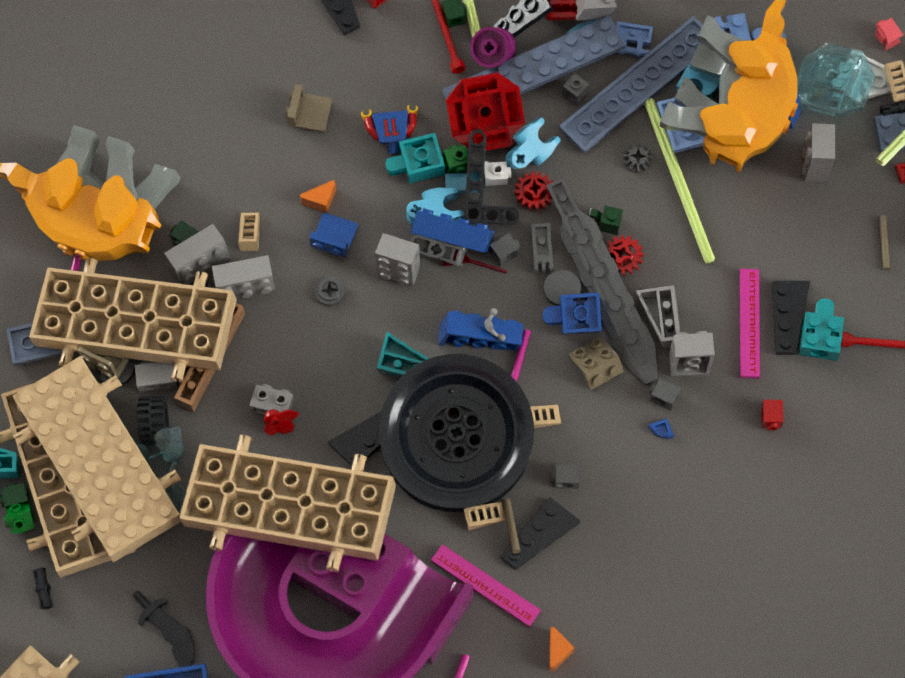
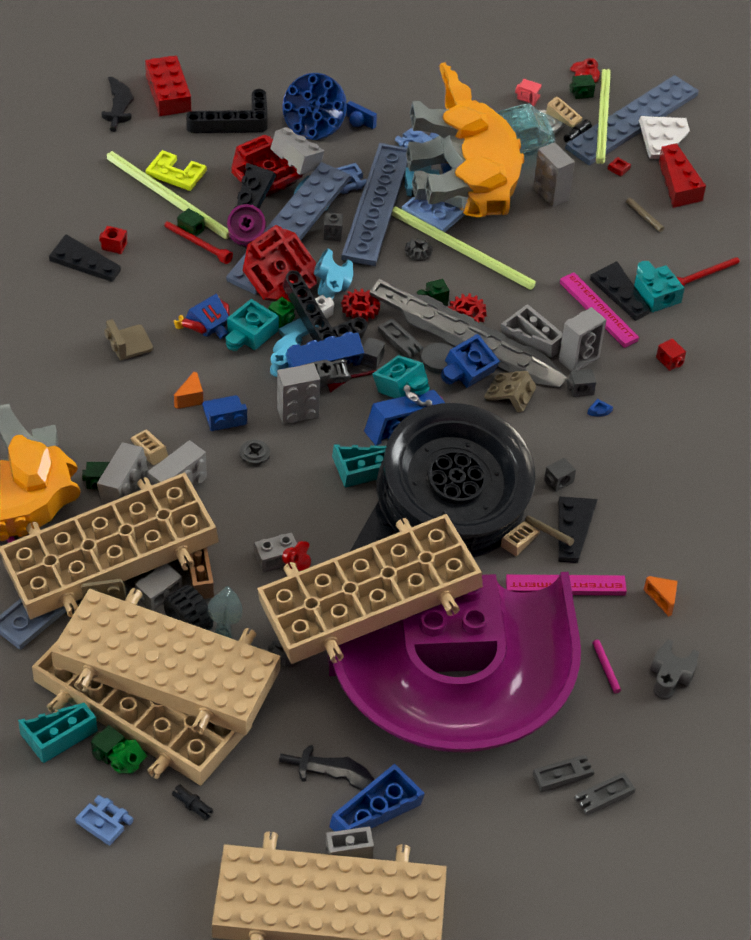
camera: 40 degrees left, 20 degrees down
(504, 293) = (400, 372): none -> teal brick

